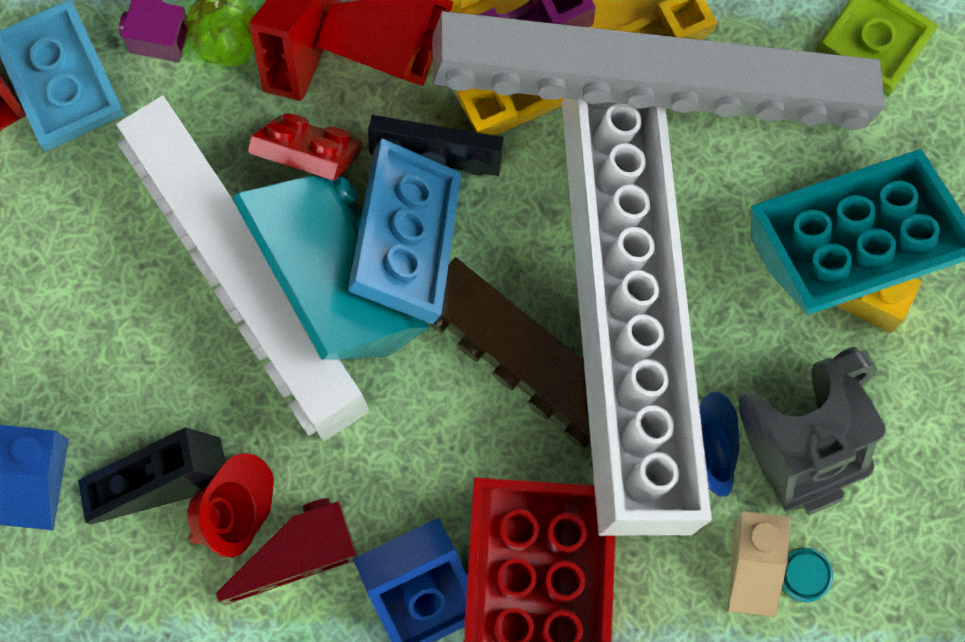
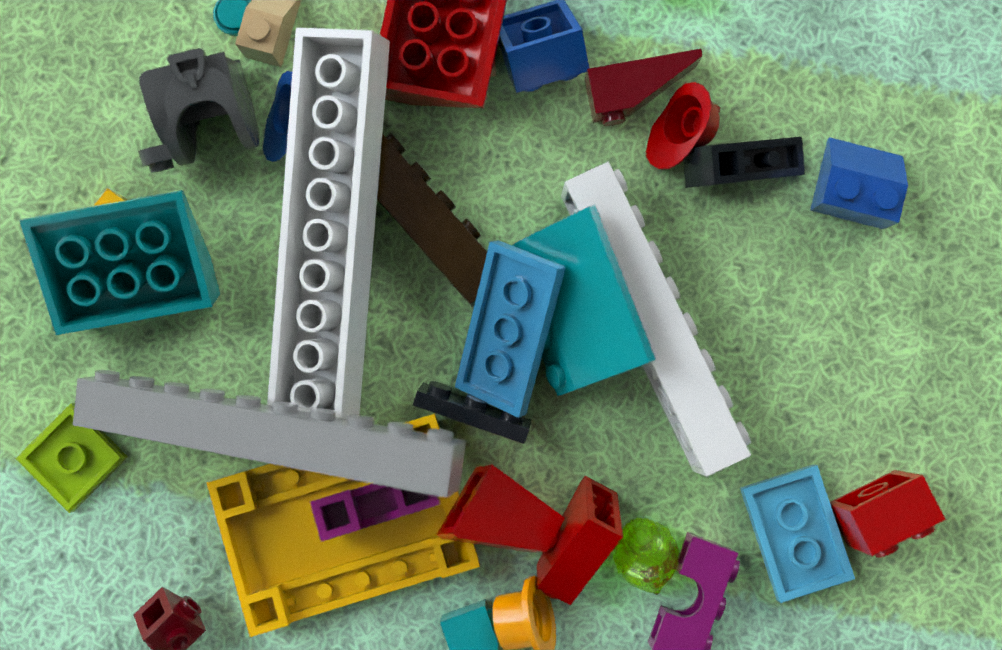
camera: 170 degrees left, 10 degrees up
(305, 146) = (586, 423): red plate -> none

